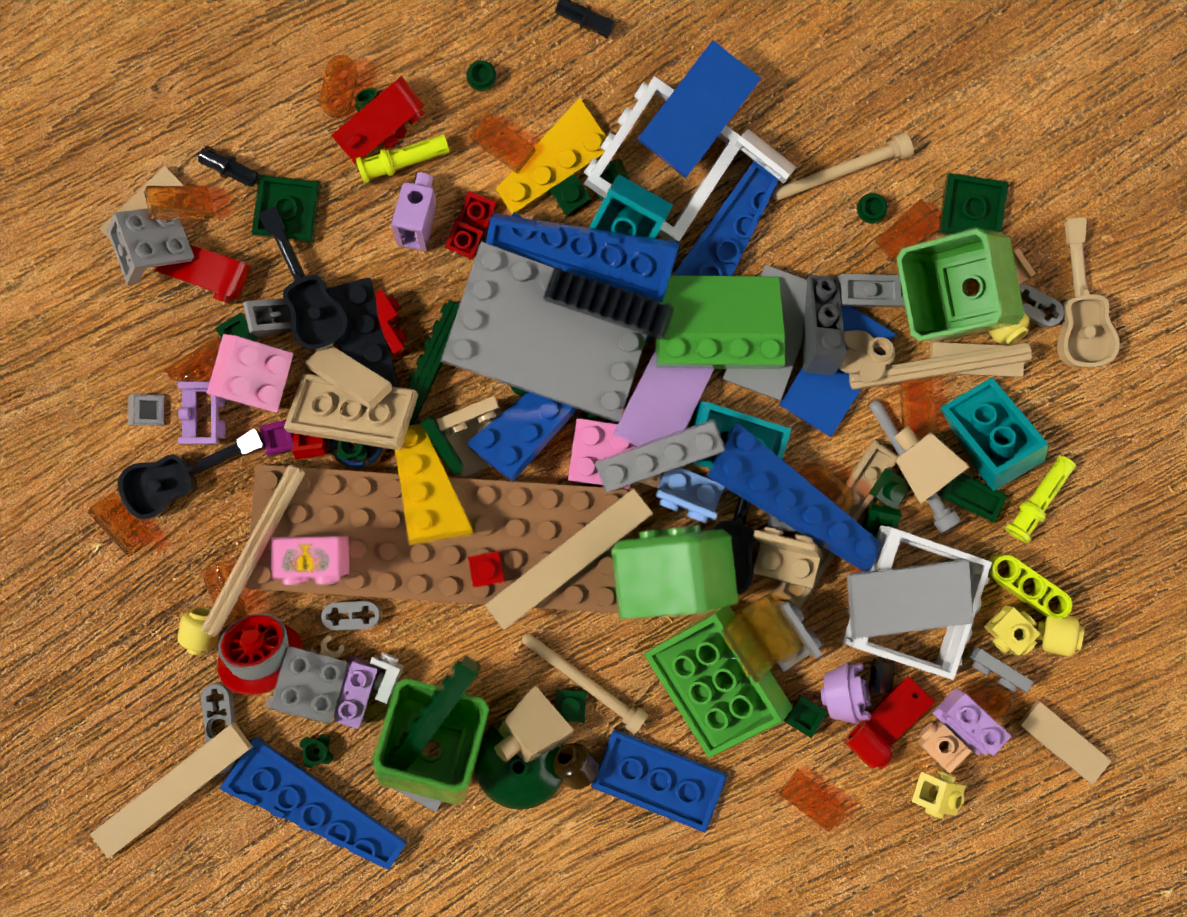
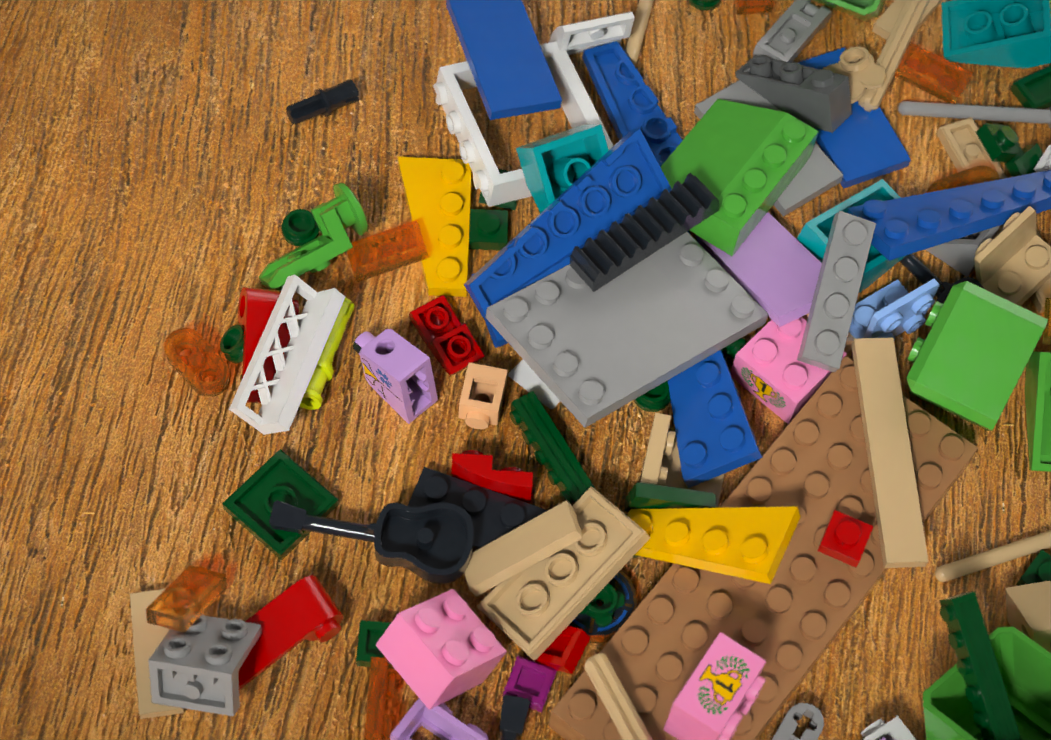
camera: 65 degrees left, 25 degrees down
(227, 166) = (187, 528): black axle -> none
(267, 317) = (388, 593): light grey slope -> none
(375, 149) = (299, 360): none -> white fence
(444, 267) = (481, 385): none -> light nougat brick
(470, 101) = (315, 255): none -> bright green piece
(927, 463) = (999, 89): tan torso -> none

